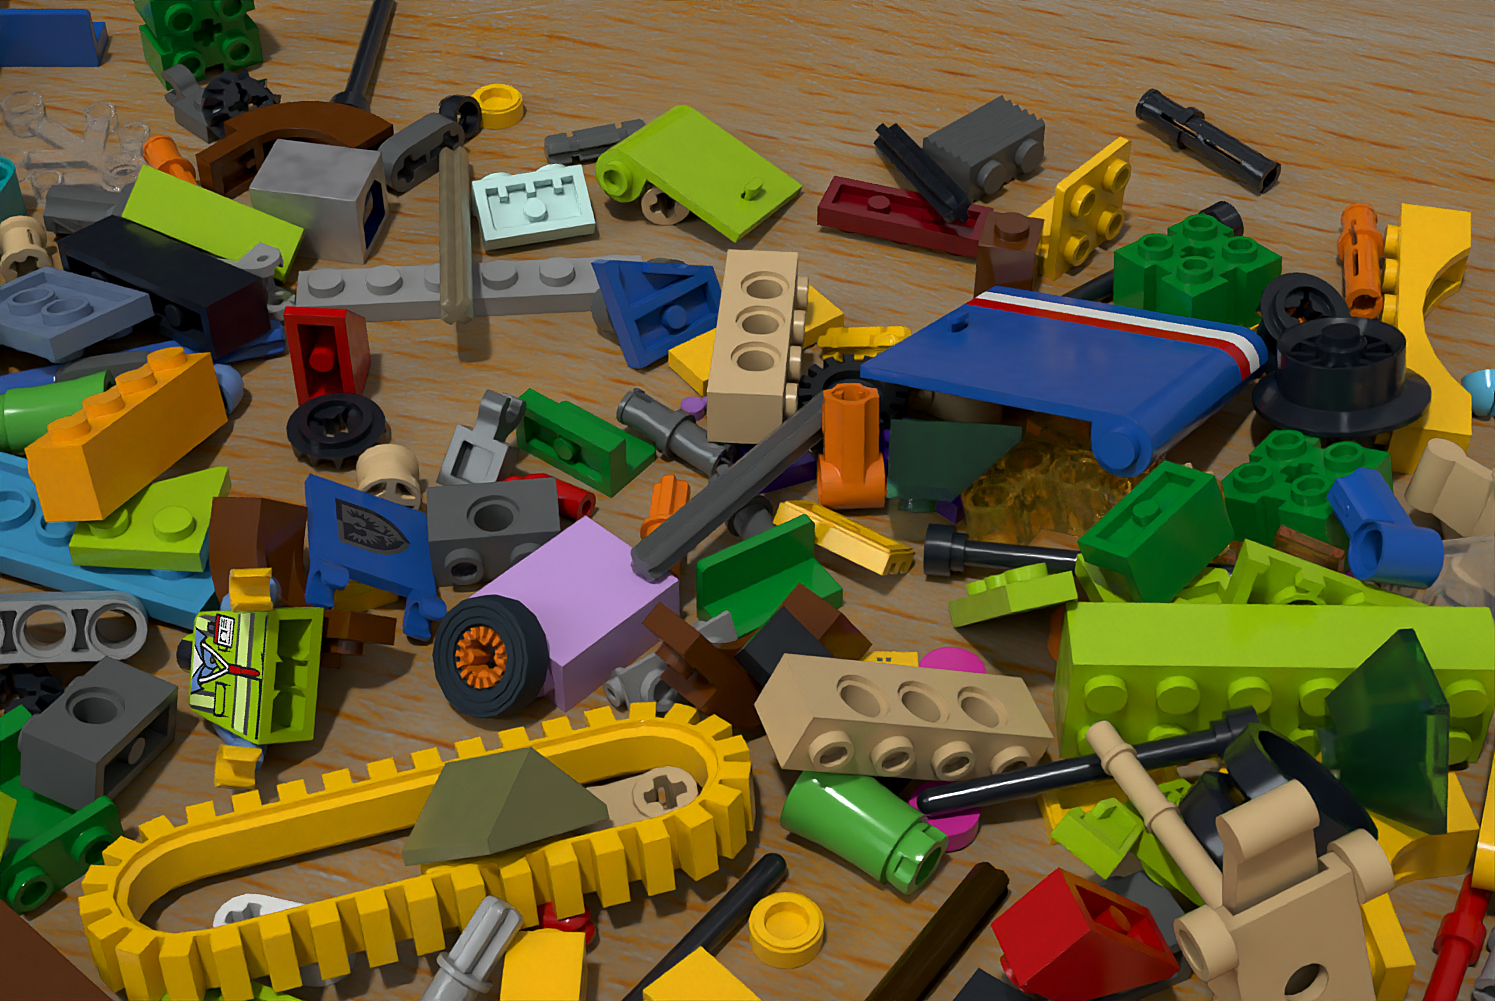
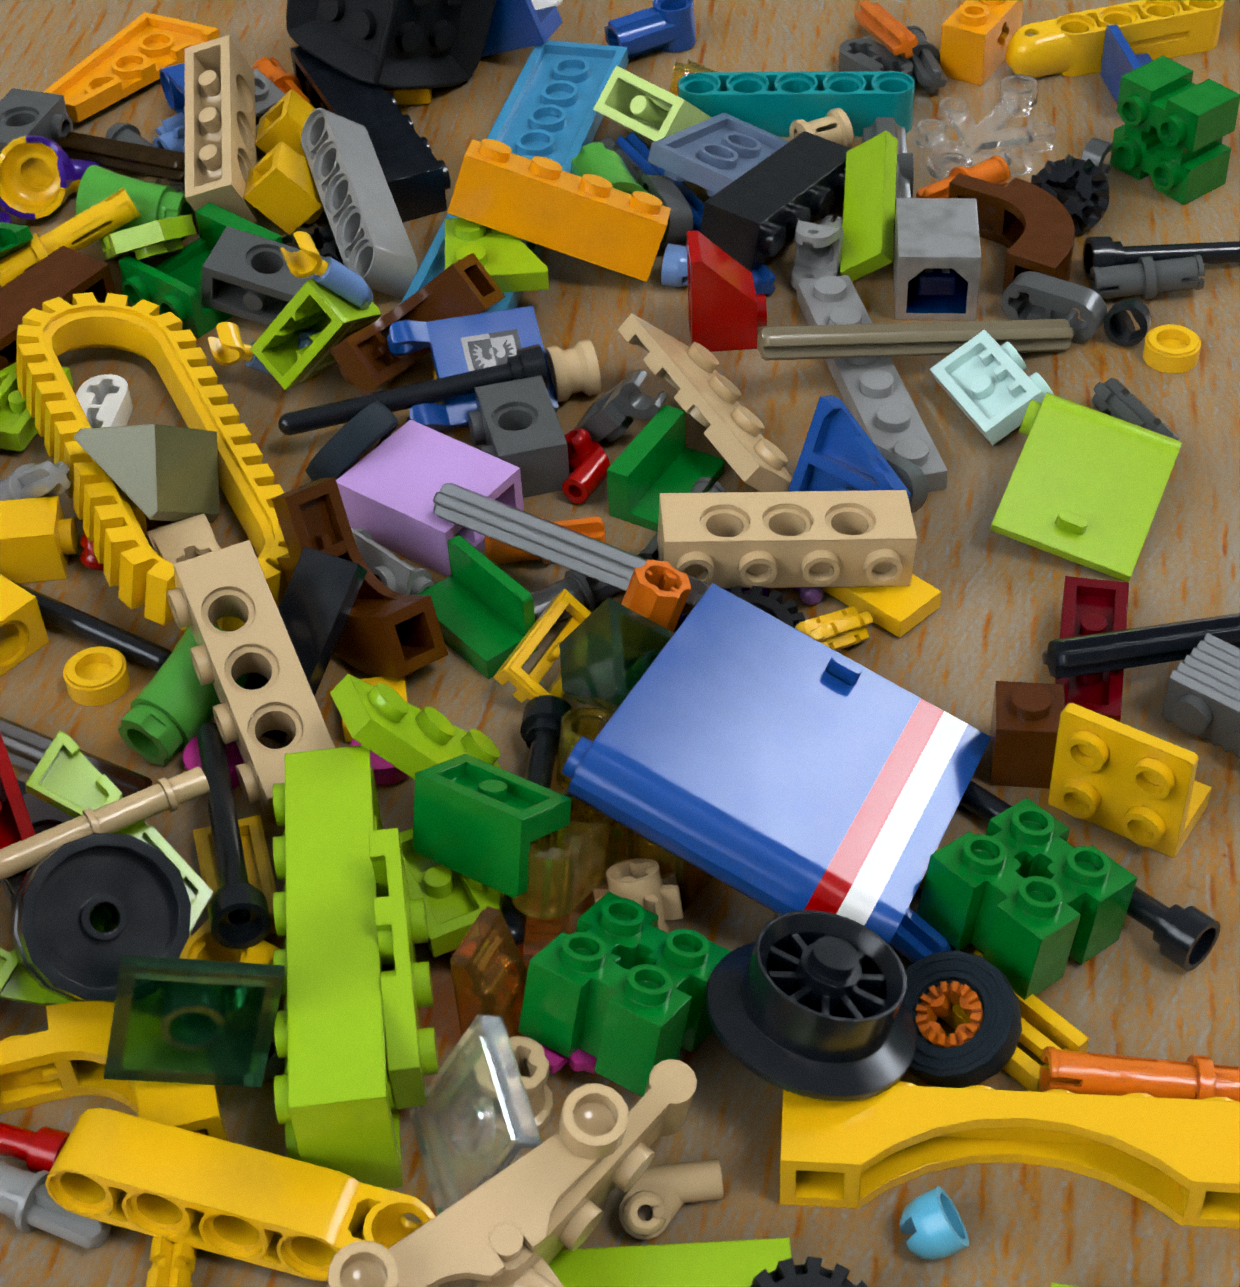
camera: 85 degrees right, 0 degrees up
(329, 415) = (662, 319): black gear -> none
(395, 89) = (1148, 277): none -> dark grey pin
(403, 505) = (525, 364): none -> black piece
(539, 372) = (713, 403): none -> tan wing
(1284, 297) = (973, 952): black gear -> none
(1382, 537) = (455, 989): blue piece -> none

